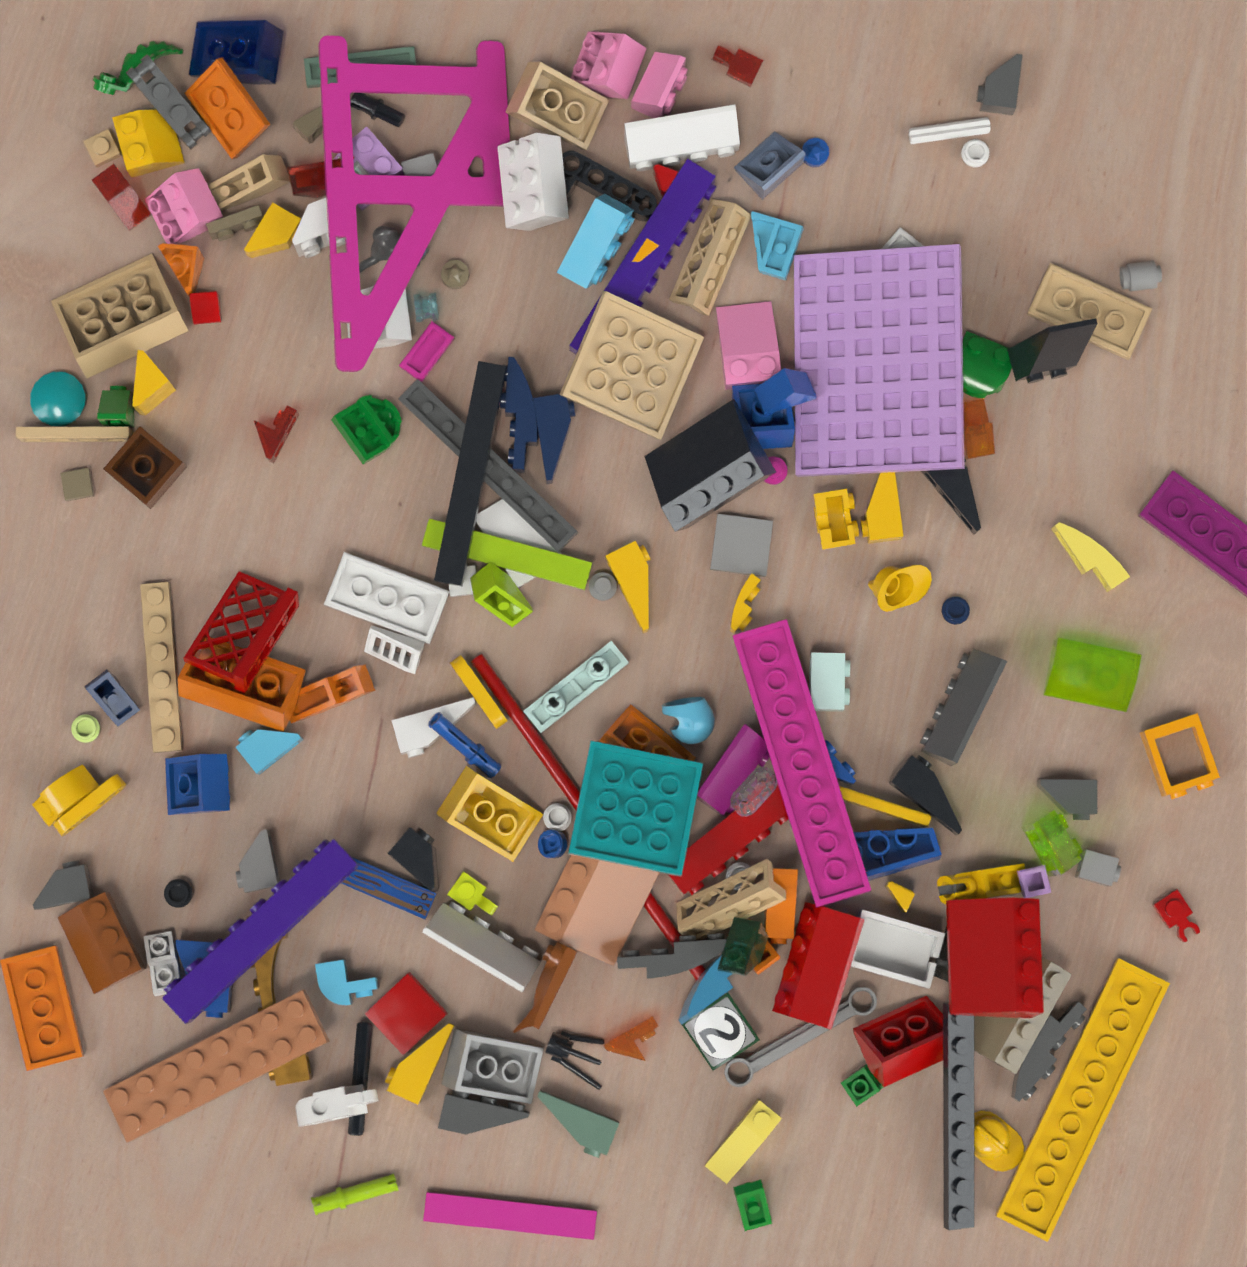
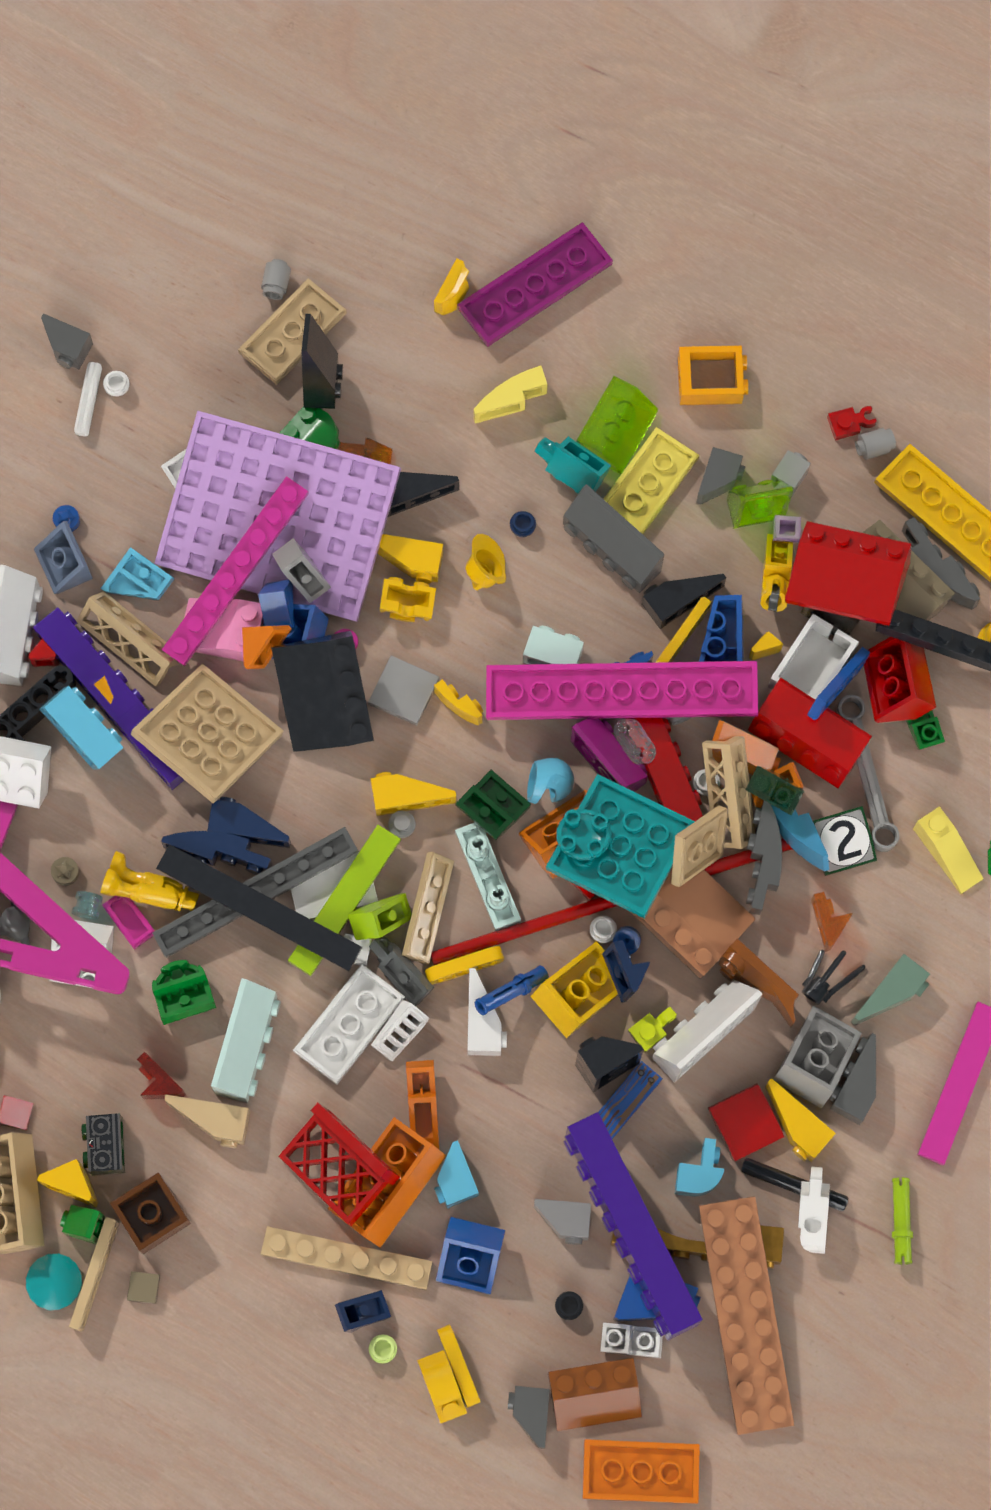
camera: 70 degrees left, 10 degrees down
(199, 402) = (104, 1144): none -> brick
(254, 499) = (219, 1120): none -> tan slope
(336, 503) = (244, 1041): none -> light aqua slope
(453, 632) = (401, 971): none -> dark grey hinge
(461, 361) = (146, 887): none -> yellow piece
(512, 853) = (624, 974): none -> dark blue slope
(524, 638) = (428, 908): none -> tan tile
(632, 768) = (583, 834): none -> teal dish
(648, 670) = (493, 804): none -> dark green slope
(662, 887) = (699, 845): none -> tan tile
(737, 385) = (258, 644): none -> orange slope
(805, 338) = (235, 571): none -> dark pink plate
(826, 402) = (301, 570): none -> light grey slope
(877, 980) = (838, 684): none -> blue tile
(1032, 642) = (573, 463): none -> teal hinge
(1042, 725) = (651, 479): none -> light yellow tile
(1159, 947) = (875, 443): none -> light grey brick
(1188, 460) = (453, 289): none -> yellow slope

